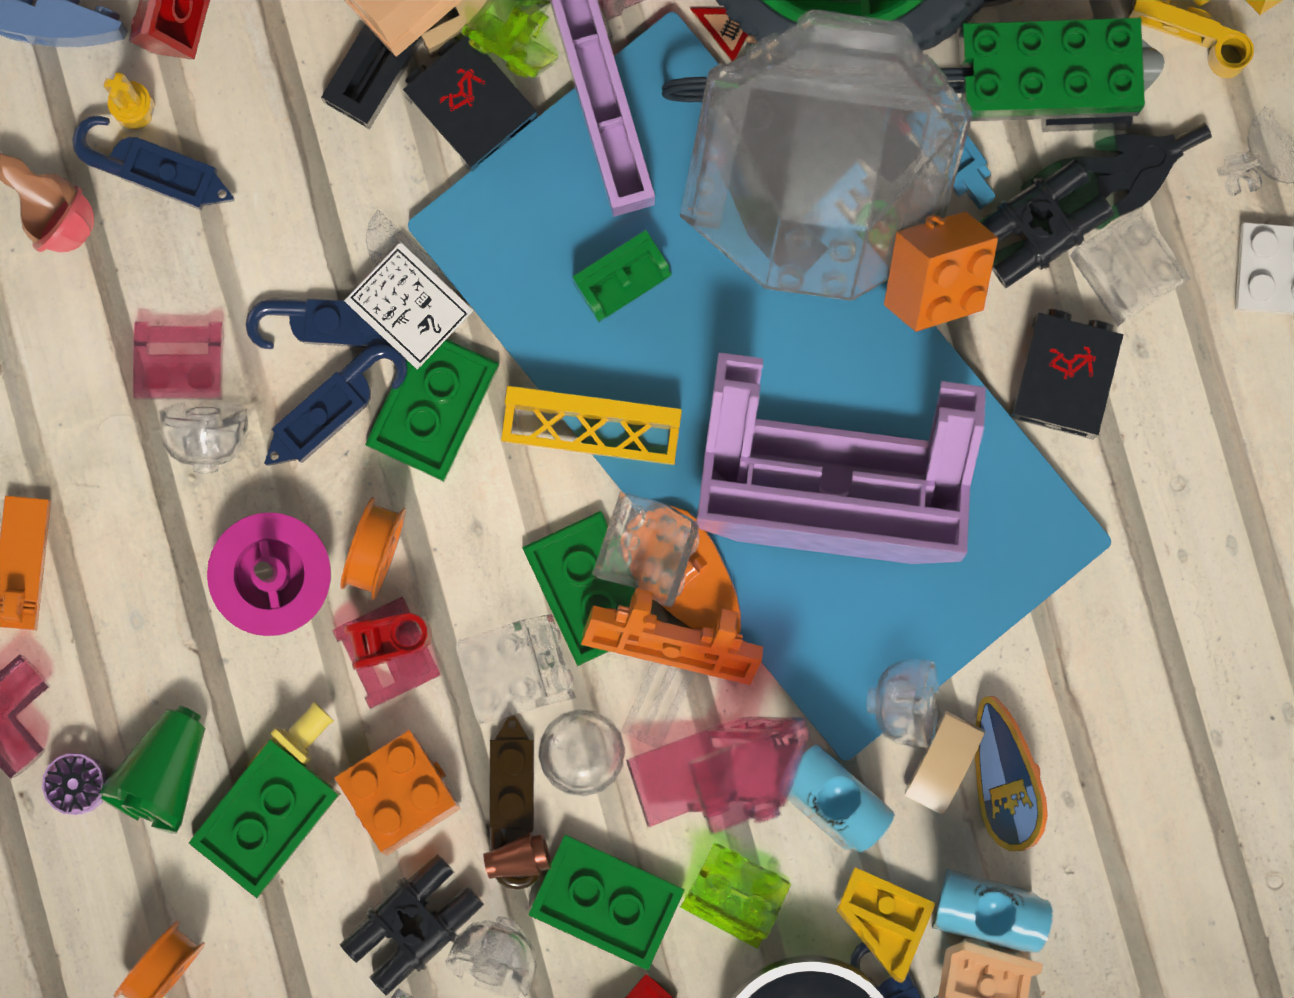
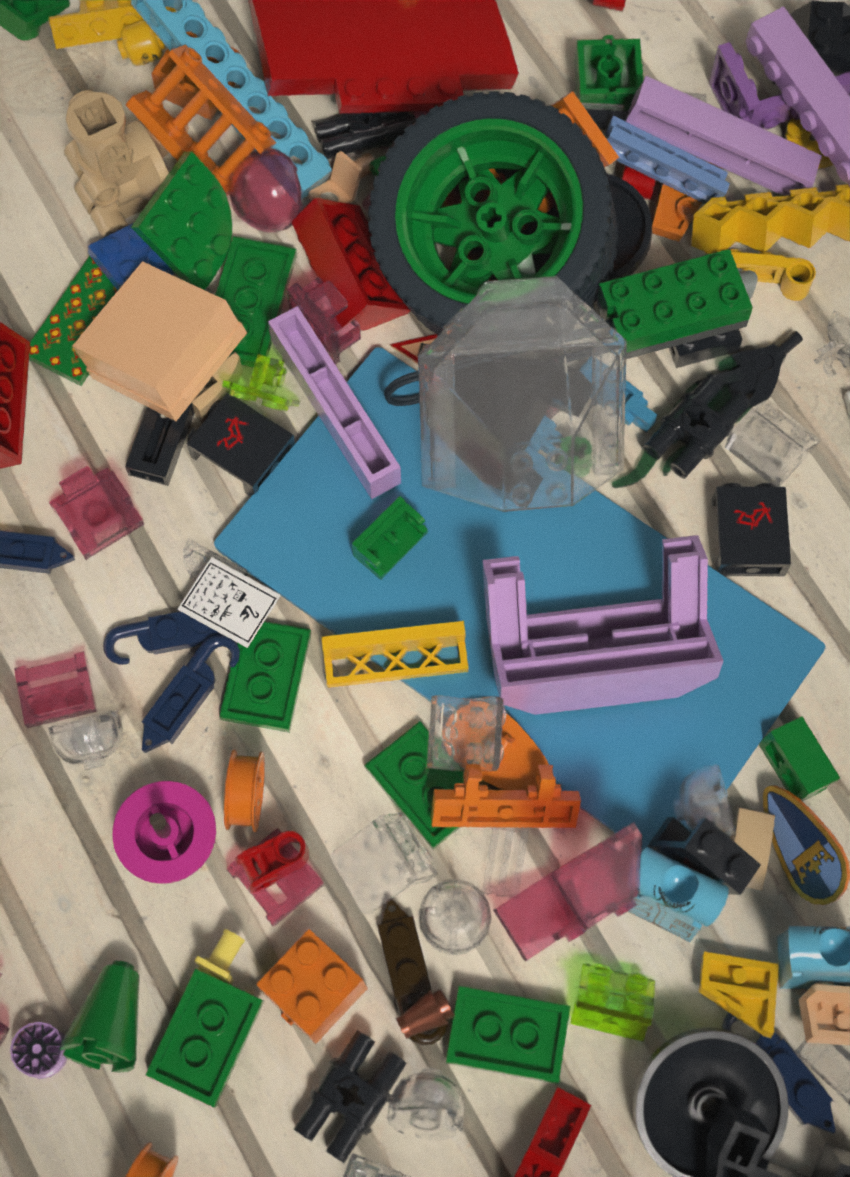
camera: 10 degrees left, 15 degrees down
(272, 143) = (95, 510): none -> clear pink panel
(883, 764) = (707, 852): none -> black panel
(940, 270) = (633, 470): orange brick -> none
(1035, 673) = (799, 759): none -> green hinge

